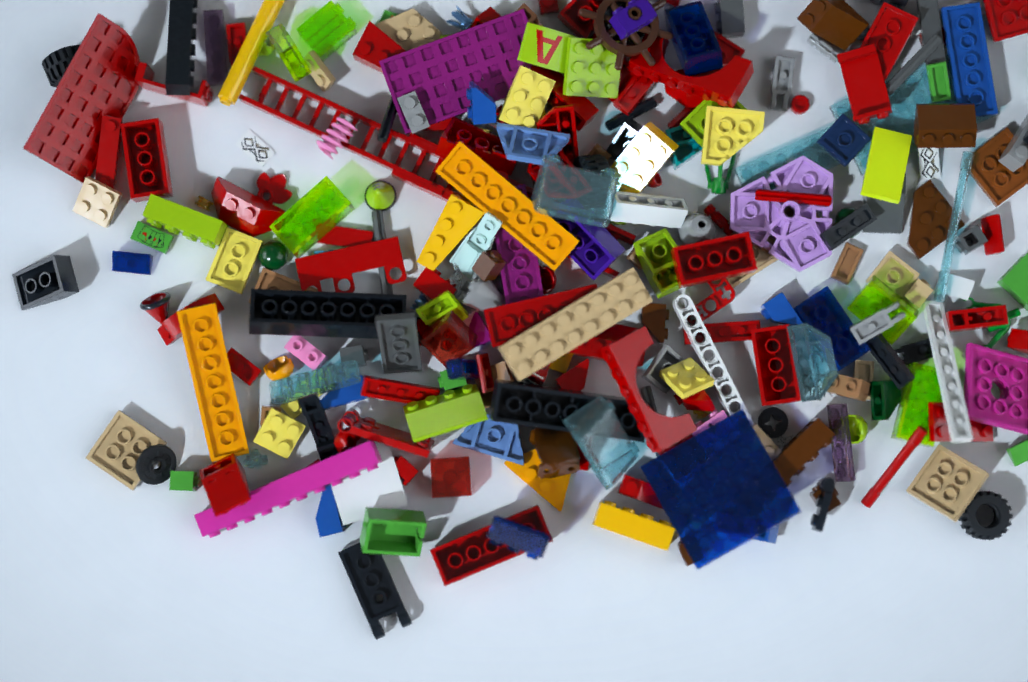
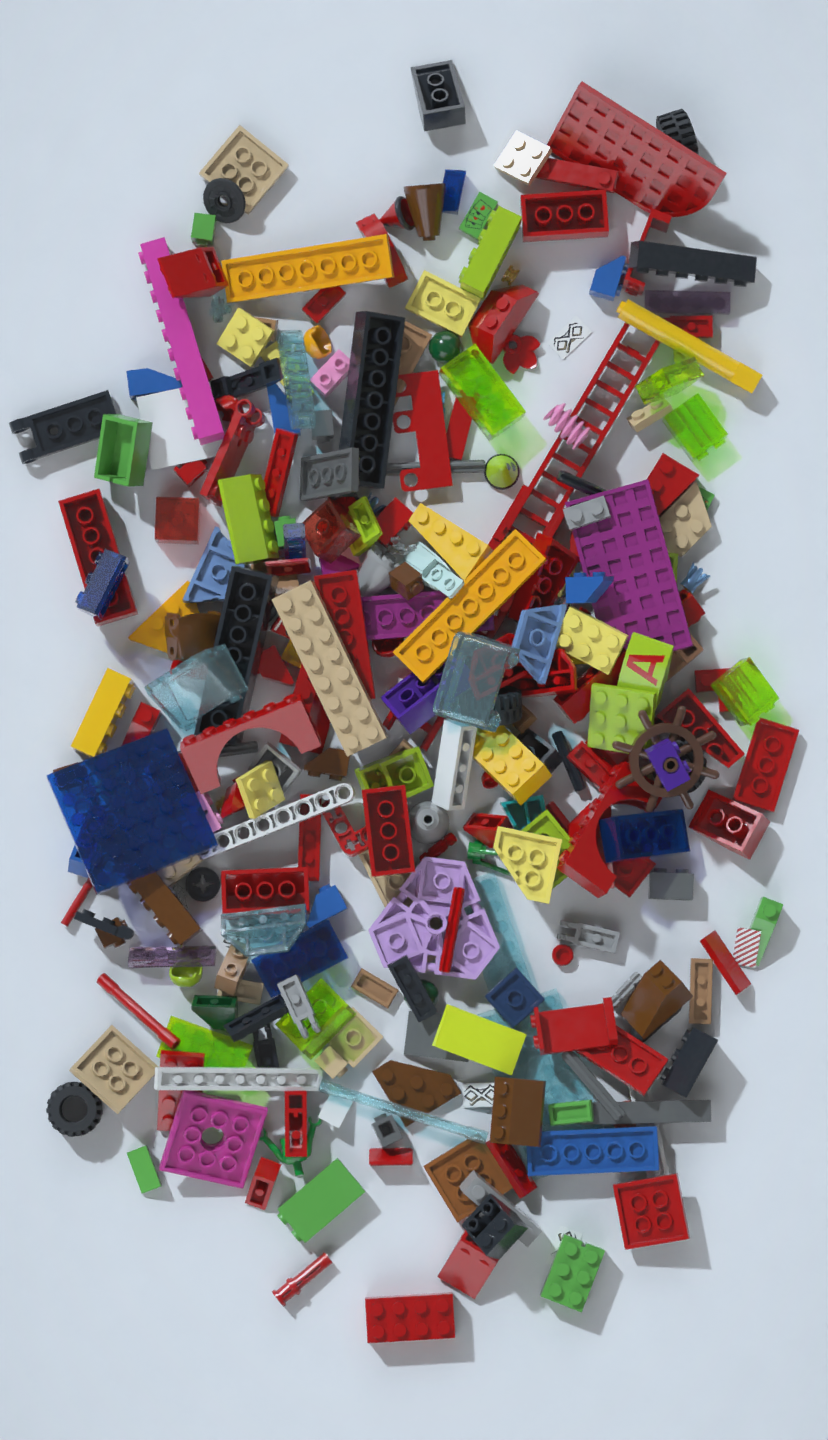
camera: 95 degrees right, 0 degrees up
(149, 282) = (426, 208): none -> reddish brown cone
(201, 118) = (607, 278): none -> blue slope
(697, 176) = (484, 826): none -> red slope
(801, 532) = (77, 903): none -> red bar
(991, 128) = (512, 1168): none -> red plate

